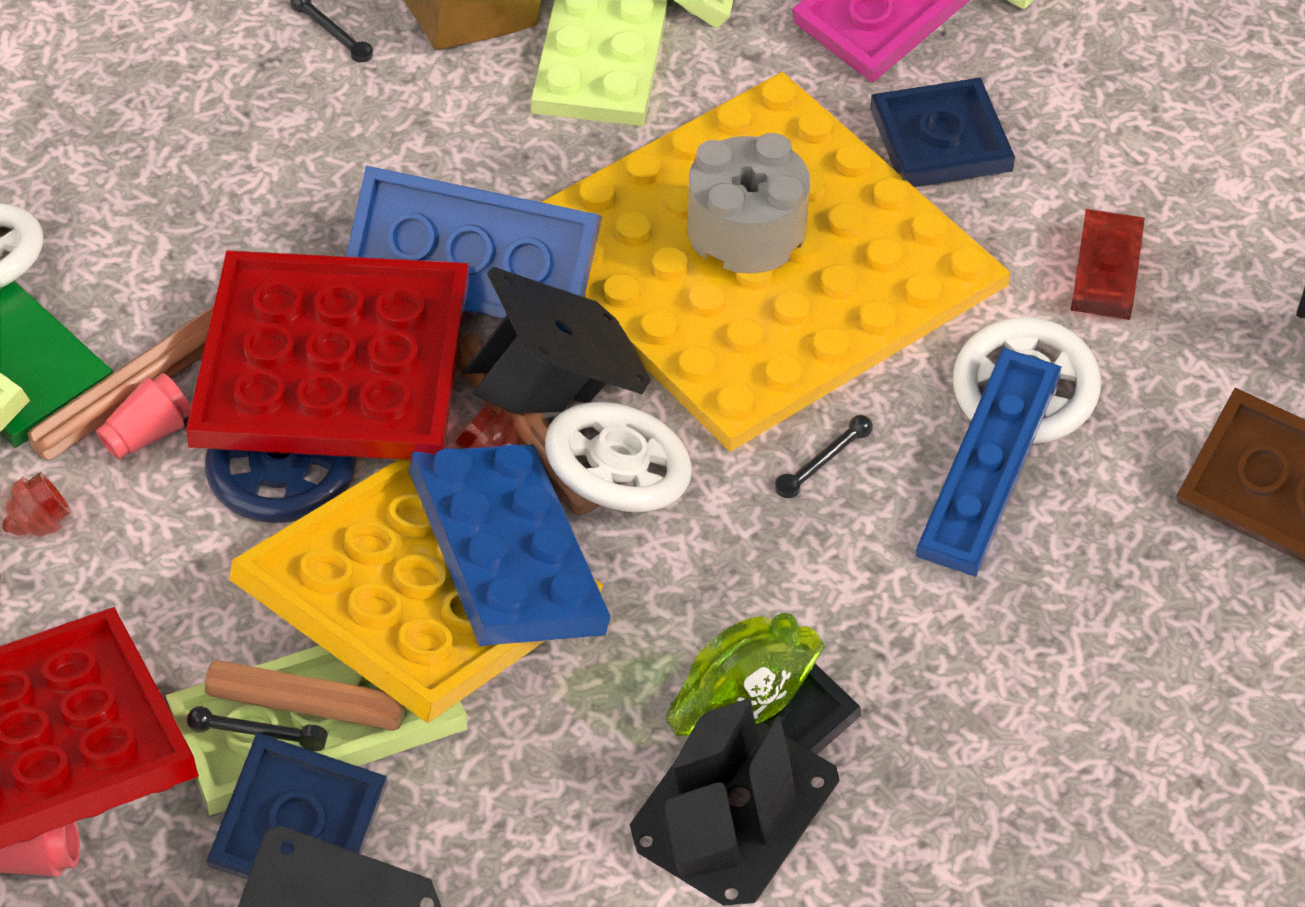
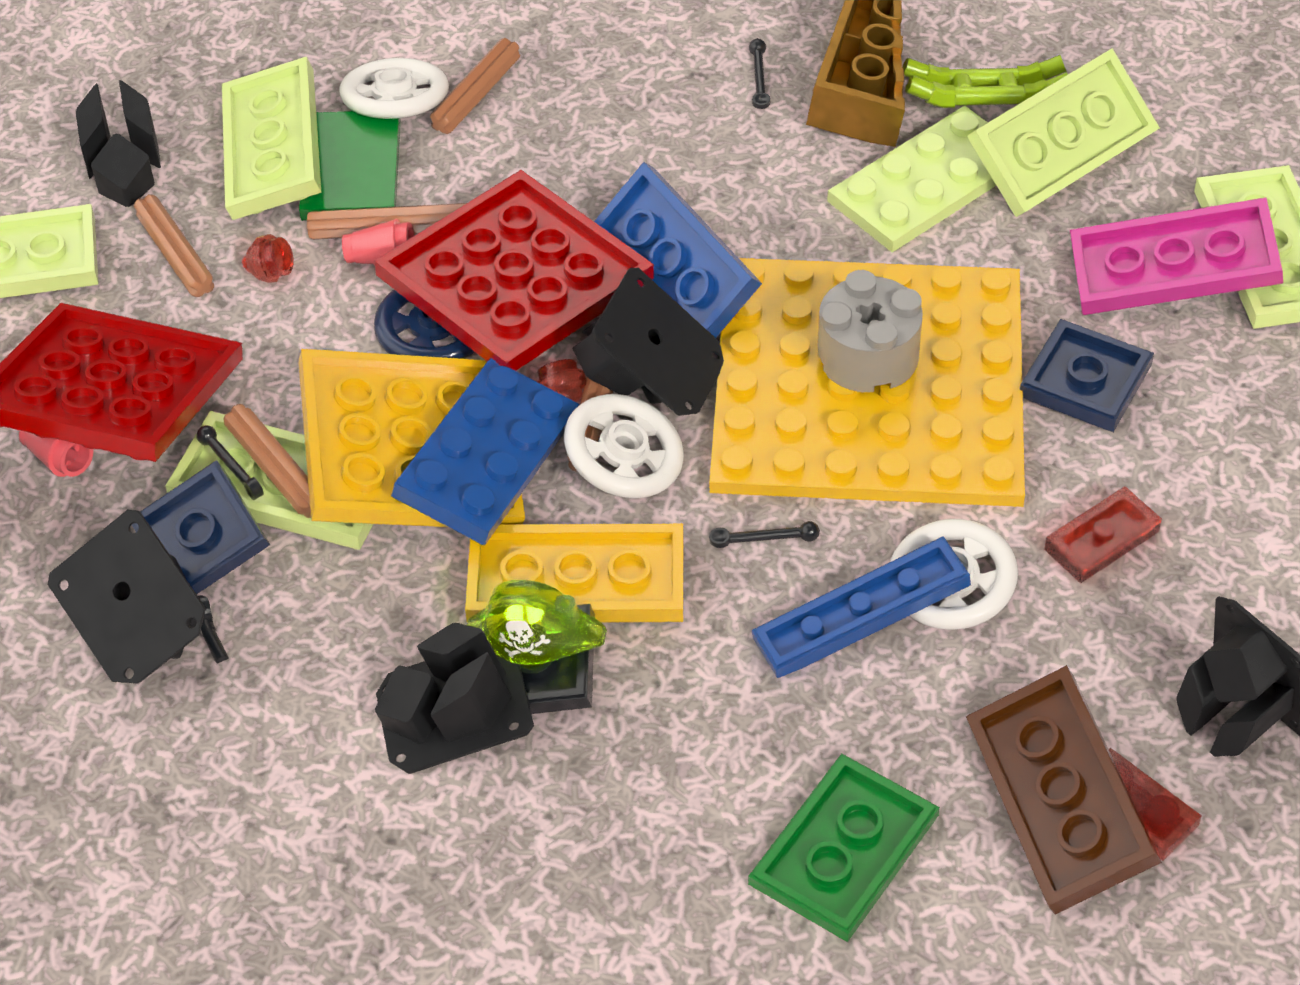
camera: 45 degrees right, 0 degrees up
(53, 200) = (475, 86): none -> nougat axle
(728, 572) = (616, 568): none -> yellow plate
(1197, 681) = (843, 847): none -> green tile

